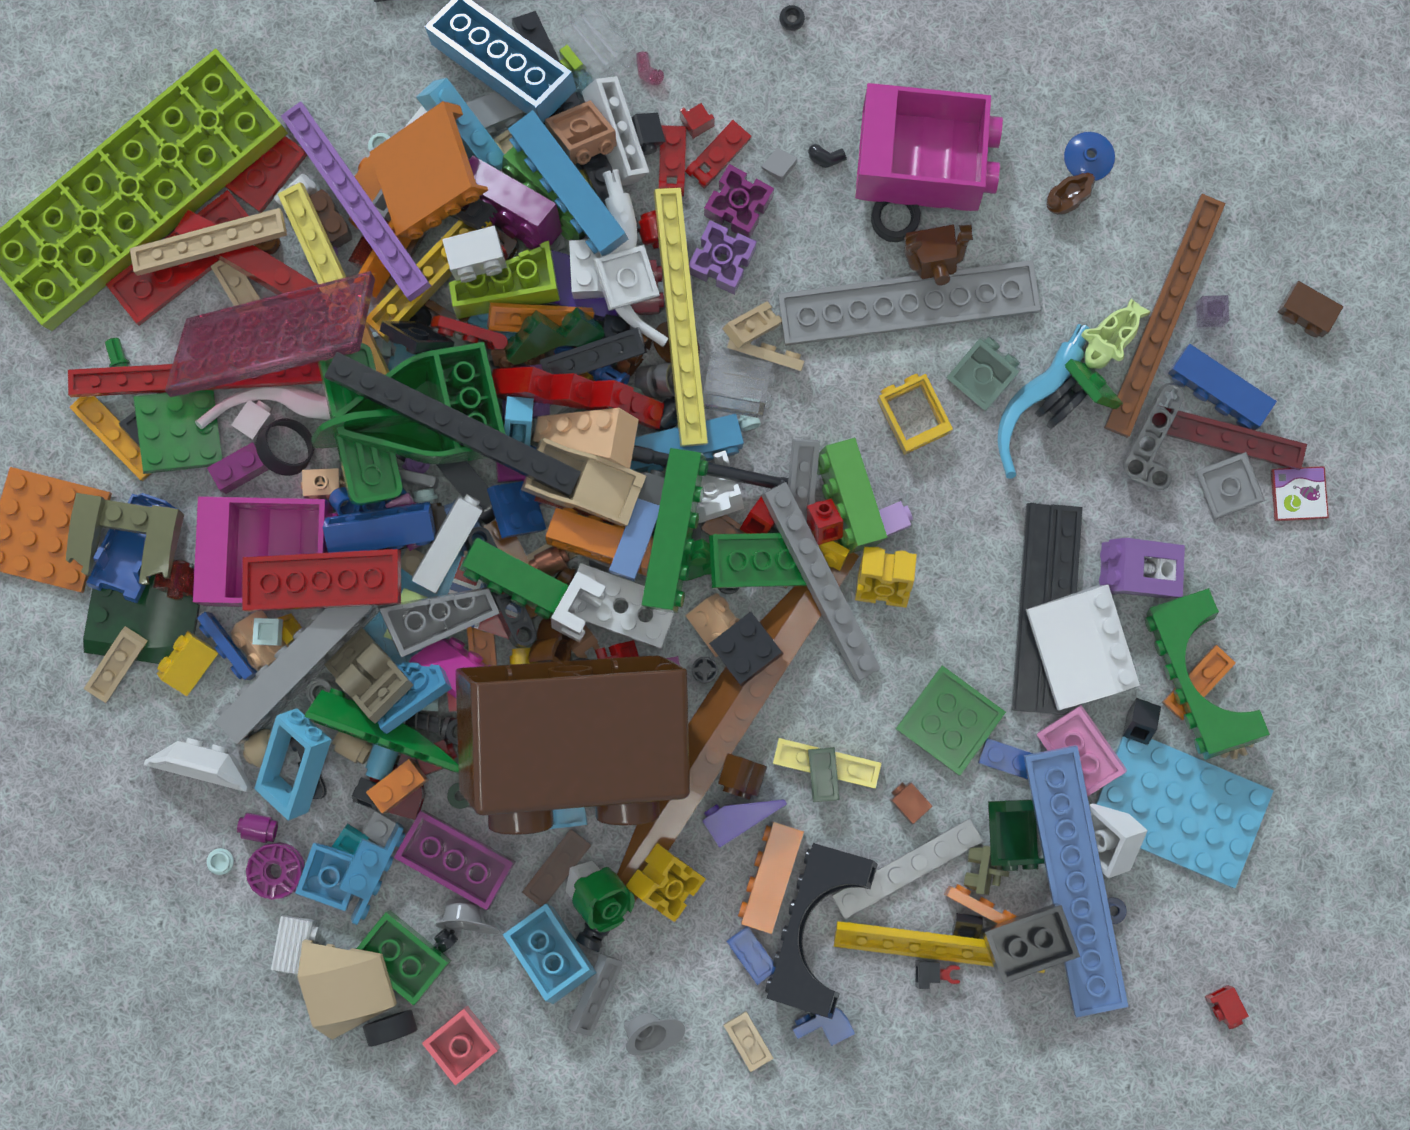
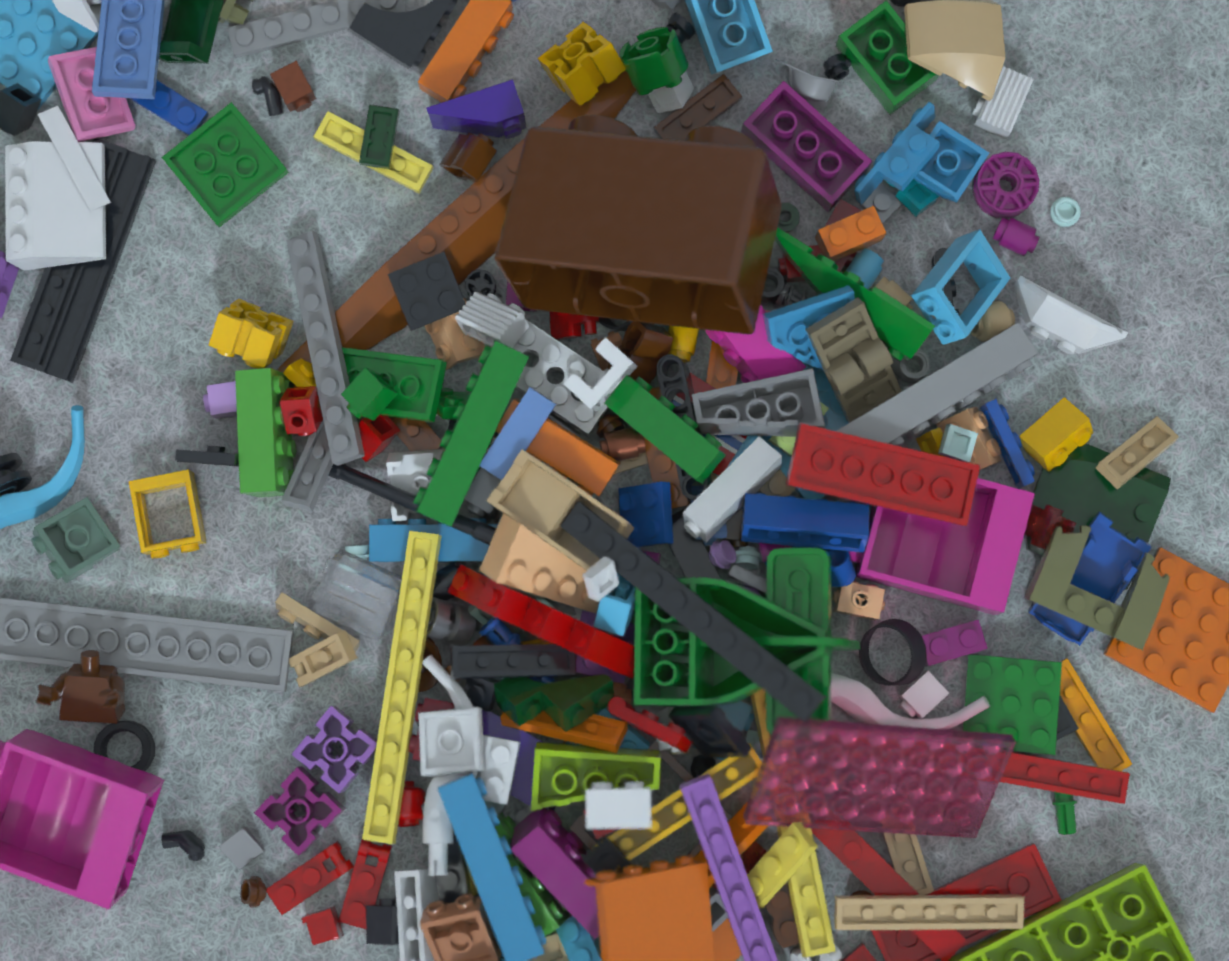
camera: 165 degrees left, 0 degrees up
(337, 250) = (780, 862): none -> light yellow plate
(360, 796) = (888, 246): black piece -> none
(445, 492) = (722, 554): none -> lavender plate
(534, 433) = (601, 579): none -> white plate
(683, 635) = (491, 320): none -> white brick
(760, 131) = (253, 891): none -> reddish brown plate
(769, 544) = (368, 394): none -> green brick
(890, 464) = (214, 455): none -> black plate
(926, 789) = (271, 95): none -> black arm
(1078, 688) = (74, 158): none -> white sticker

